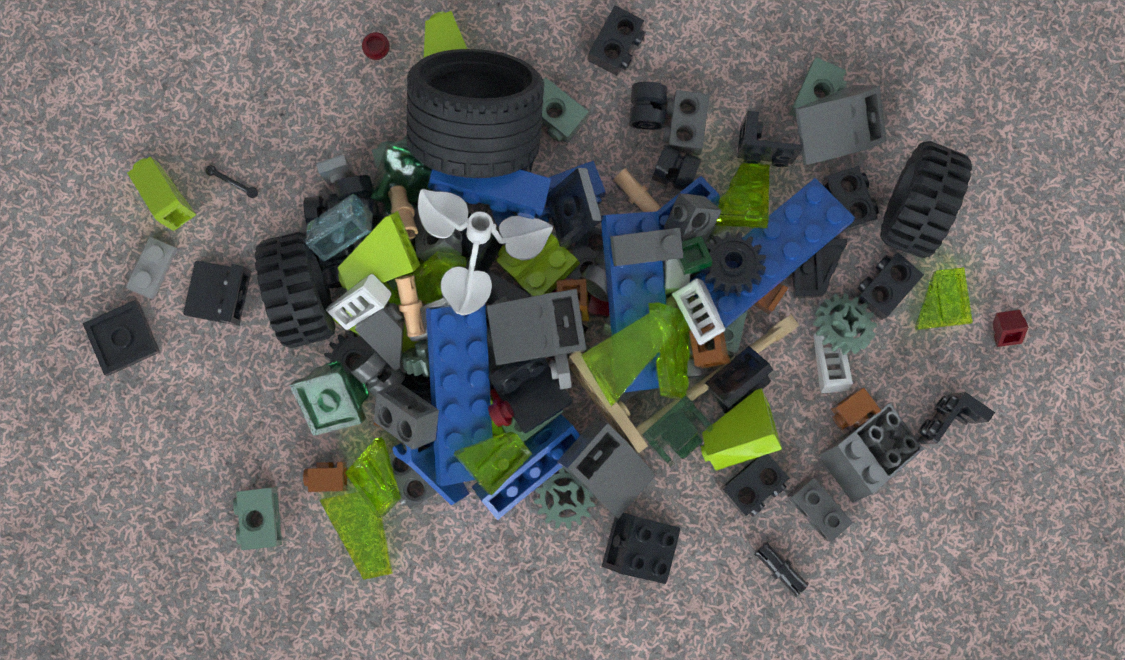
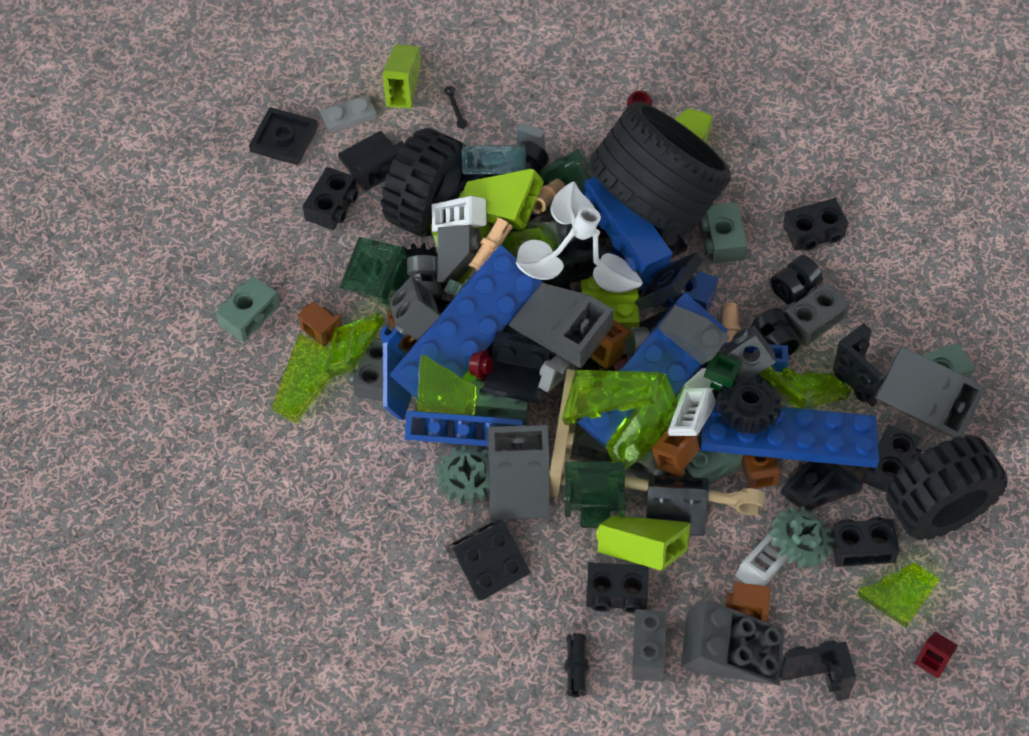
camera: 45 degrees right, 25 degrees down
(215, 365) = (330, 198): none -> black brick

